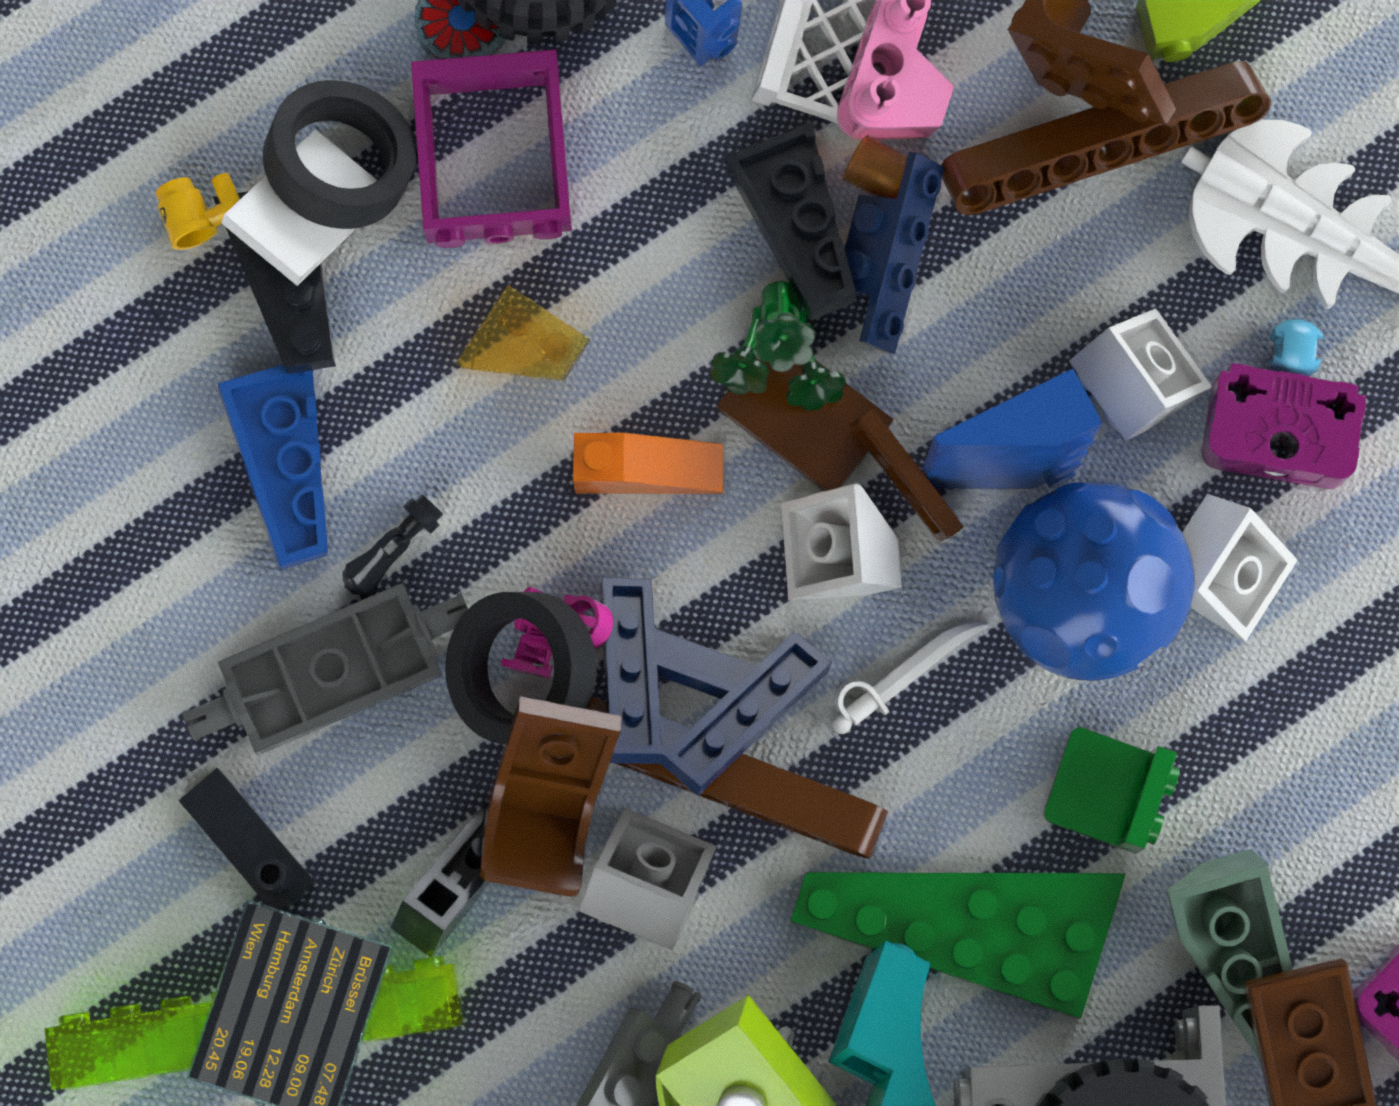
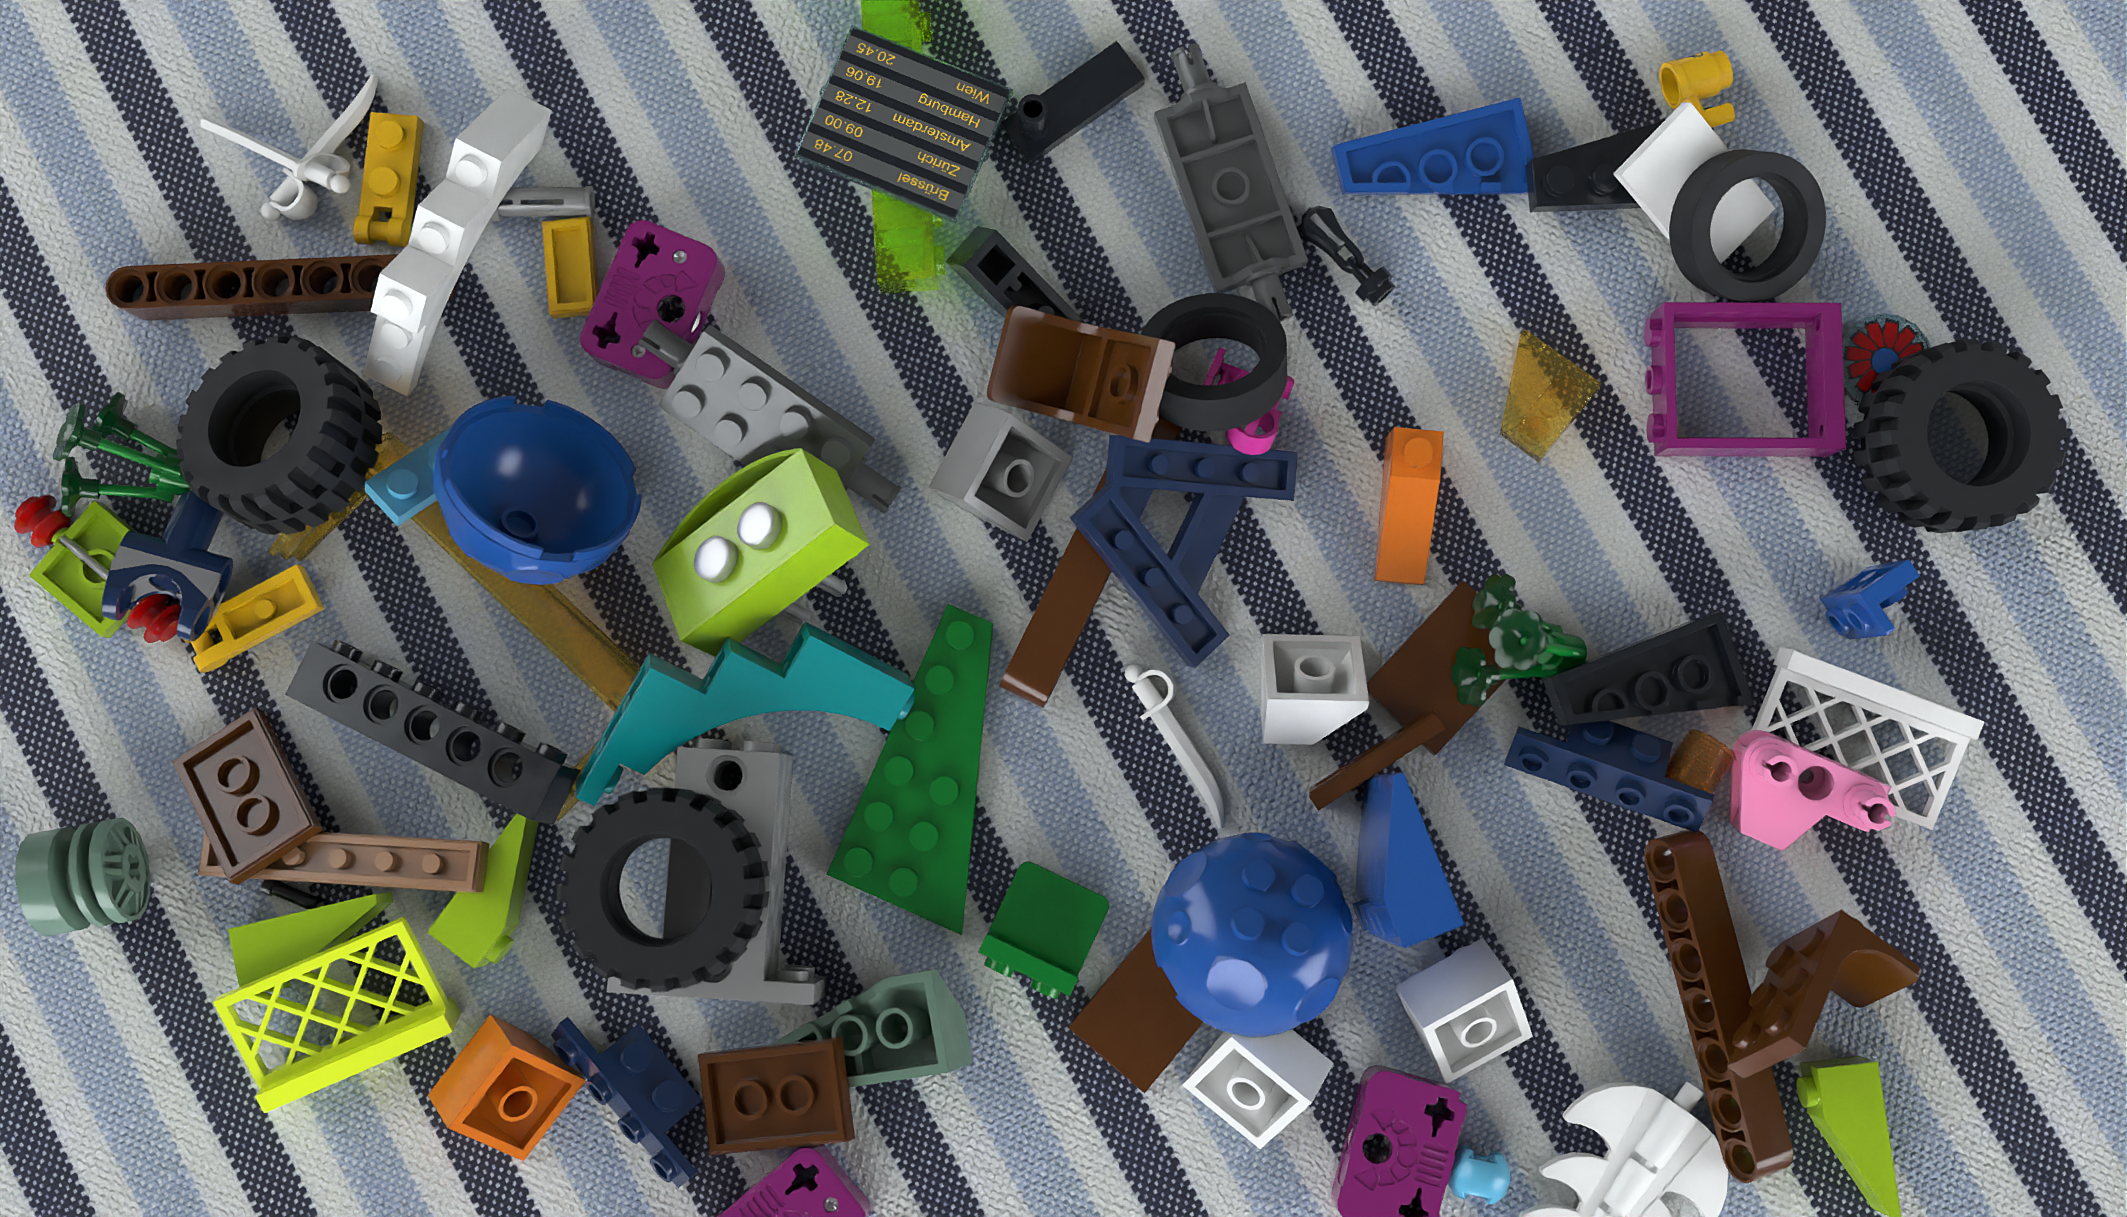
camera: 100 degrees right, 5 degrees up
(1184, 691) = (1136, 1018): none -> reddish brown tile

